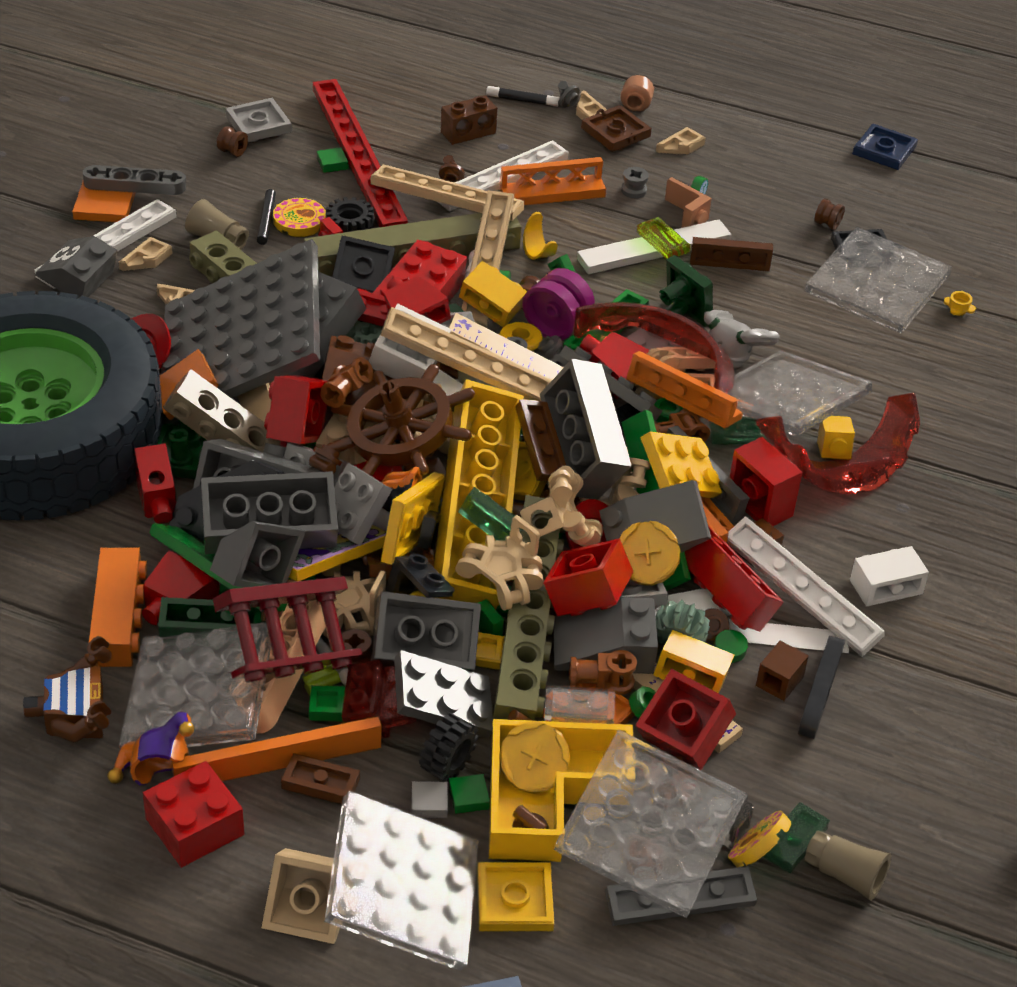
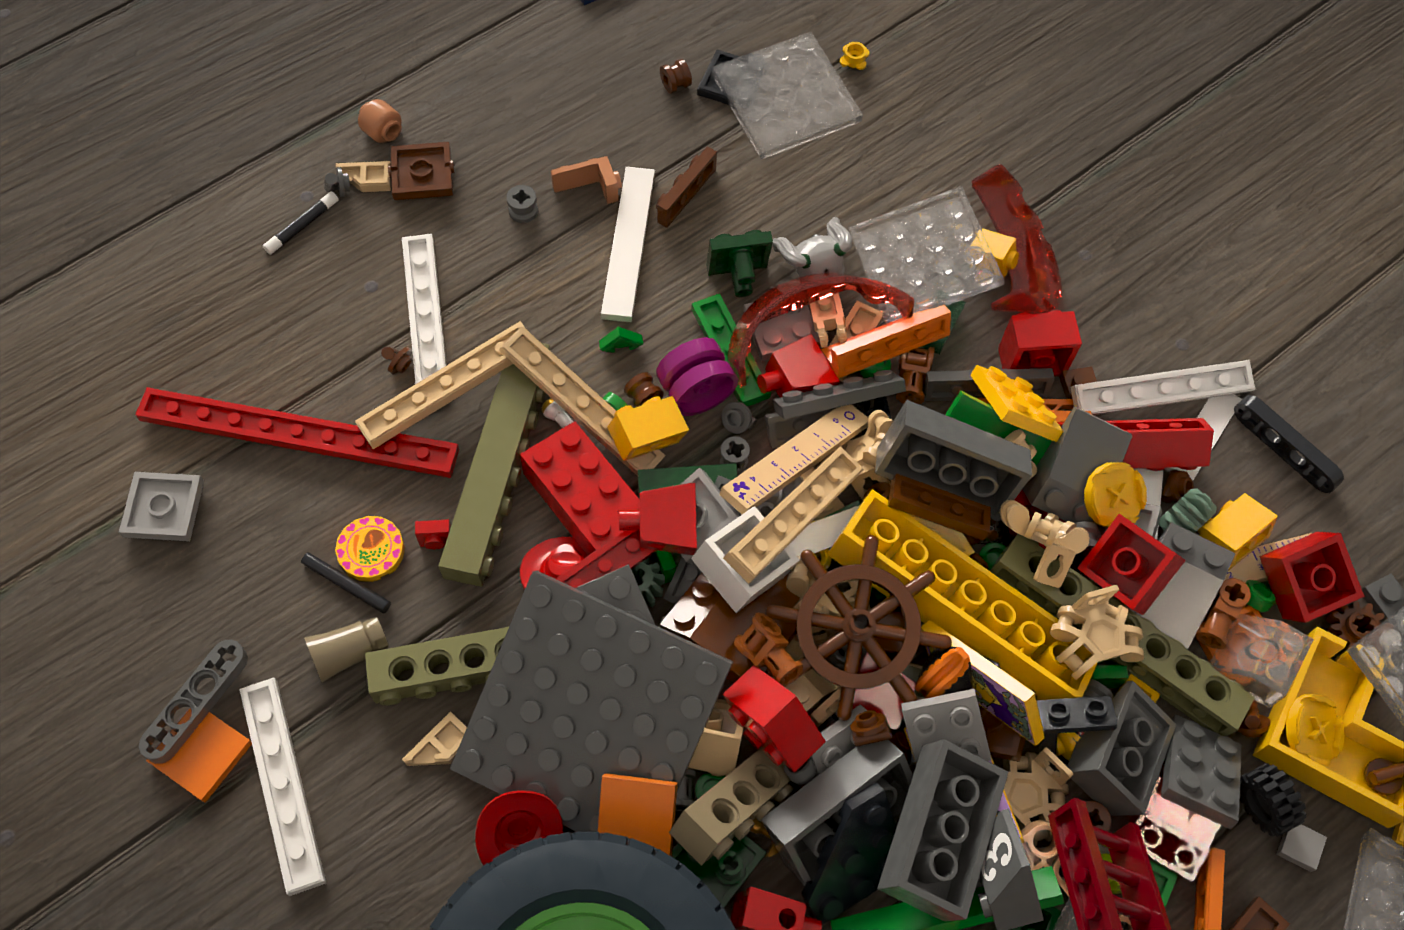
camera: 60 degrees left, 20 degrees up
(79, 266) = (326, 842): dark grey slope -> none
(146, 255) = (335, 747): tan tile -> none
(232, 141) = (187, 554): reddish brown wheel -> none
(332, 160) = (287, 464): green tile -> none
(351, 214) = (407, 483): black tyre -> none
(362, 263) = (519, 530): black tile -> none
(468, 119) = (319, 295): reddish brown brick -> none
(469, 793) = (1315, 804): green tile -> none
(487, 514) = (1039, 606): clear green plate -> none
(523, 330) = (709, 423): yellow piece -> none
(534, 241) = (565, 346): yellow helmet -> none
(551, 187) = (478, 278): orange fence -> none
(663, 238) = (631, 229): clear neon green tile -> none
(681, 142) = (478, 127): tan tile -> none
(700, 184) = (569, 154): green tile -> none
(732, 642) = (1209, 483): green tile -> none
(782, 670) = (1259, 463): reddish brown brick -> none
(889, 576) = (1179, 316): white brick -> none

